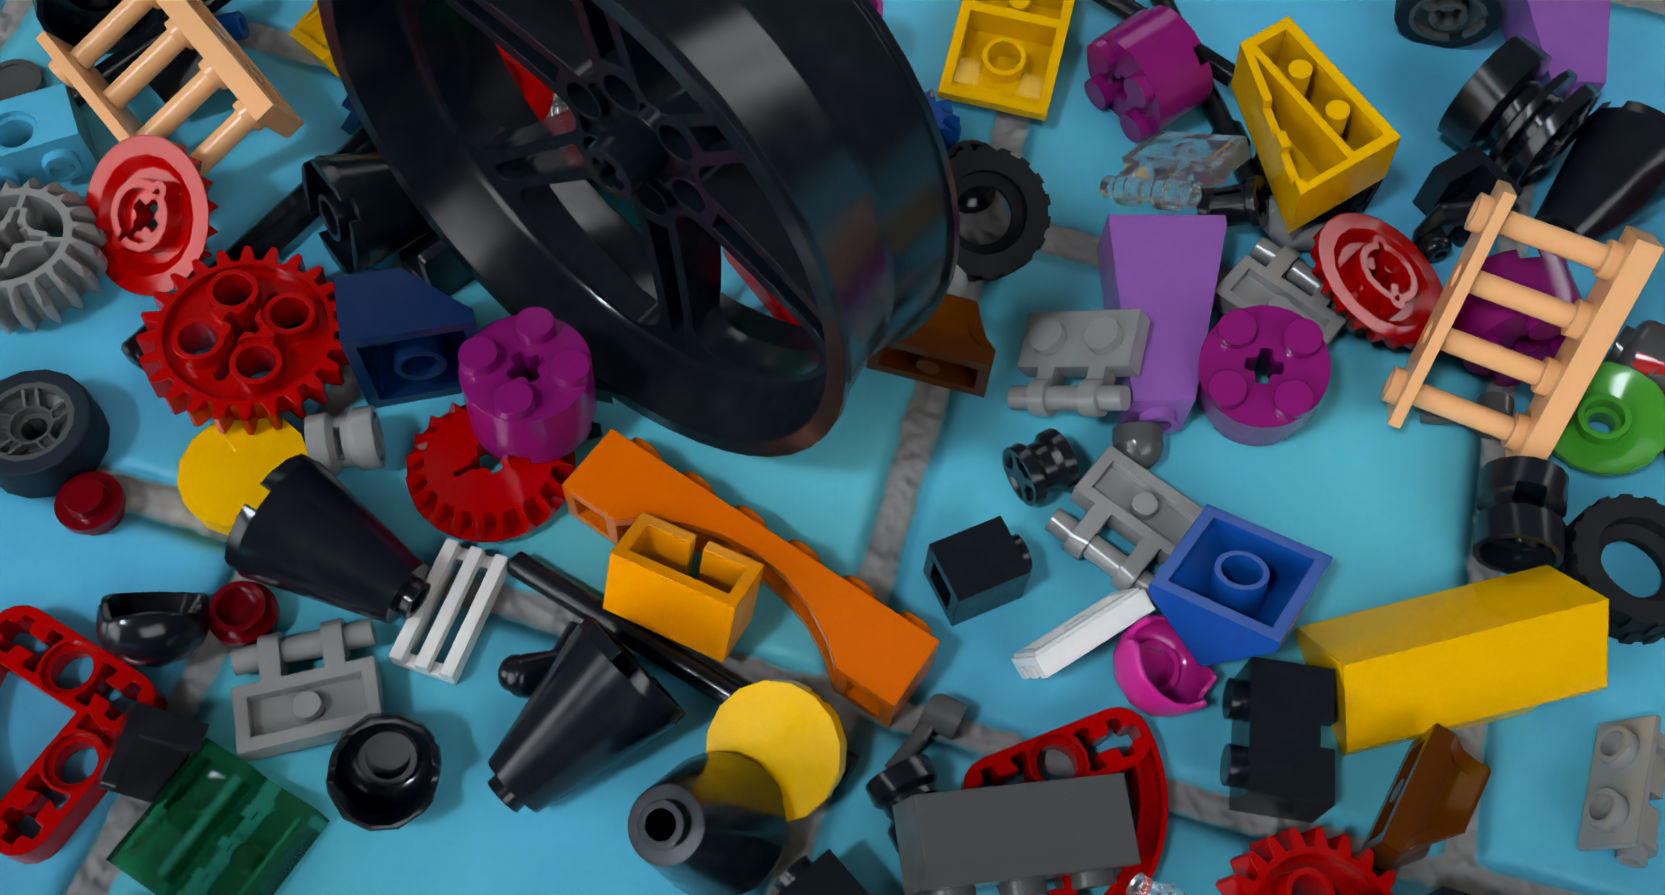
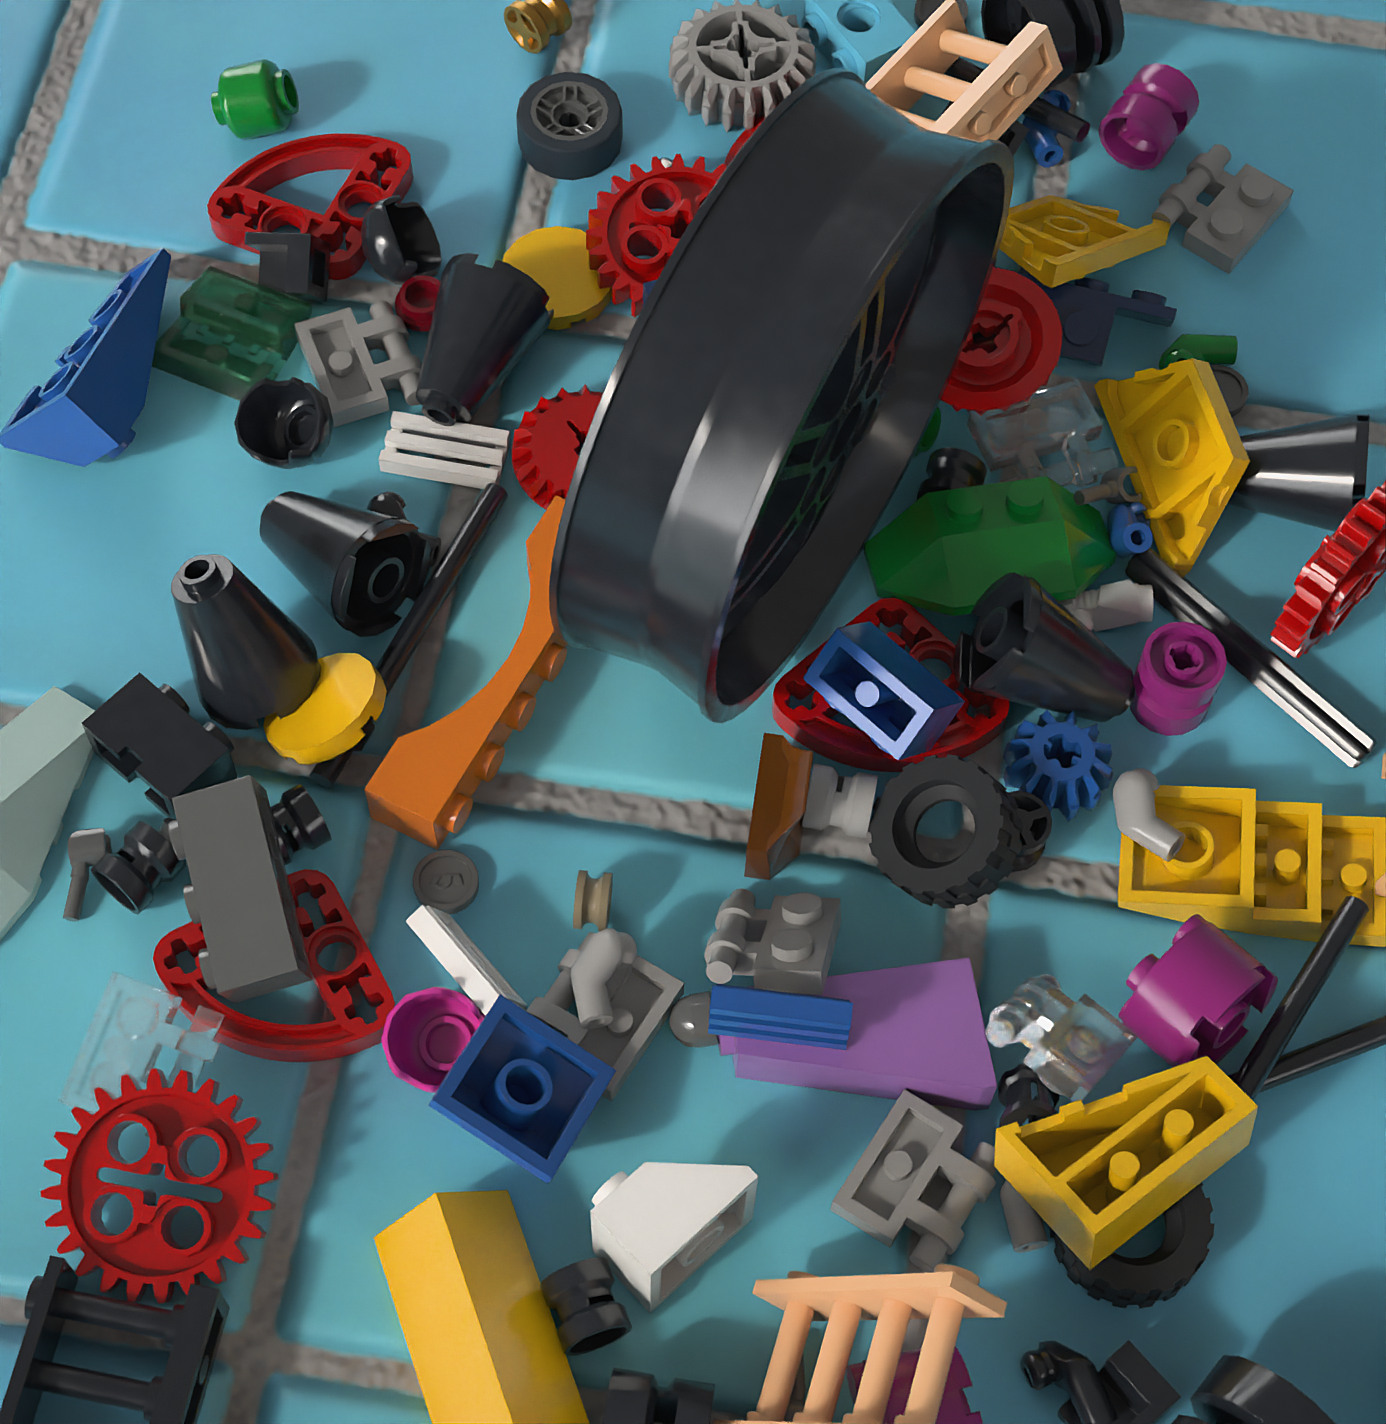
camera: 85 degrees right, 0 degrees up
(90, 503) = (512, 179): dark red plate -> none
(346, 439) = (589, 329): light grey wheel -> none
(653, 587) = (471, 596): light orange piece -> none
(941, 715) = (377, 852): dark grey hand -> none
(973, 657) = (446, 881): none -> dark grey piece
(977, 570) = (526, 866): black brick -> none
(978, 78) = (1137, 814): none -> light grey arm
(1020, 512) = (592, 900): none -> dark tan bush
(1041, 466) = (651, 918): black wheel -> none
(1106, 511) = (592, 970): none -> light grey arm
(1180, 349) = (780, 1016): none -> blue tile
(1271, 341) = (787, 1122): magenta brick -> none
(1276, 740) = (370, 1153): black brick -> none
(1360, 471) = (668, 1222): none -> white slope
(1375, 278) = (983, 1236): red gear -> none
(1406, 566) = (585, 1306): none -> black wheel
(1427, 799) = (318, 1296): reddish brown slope -> none

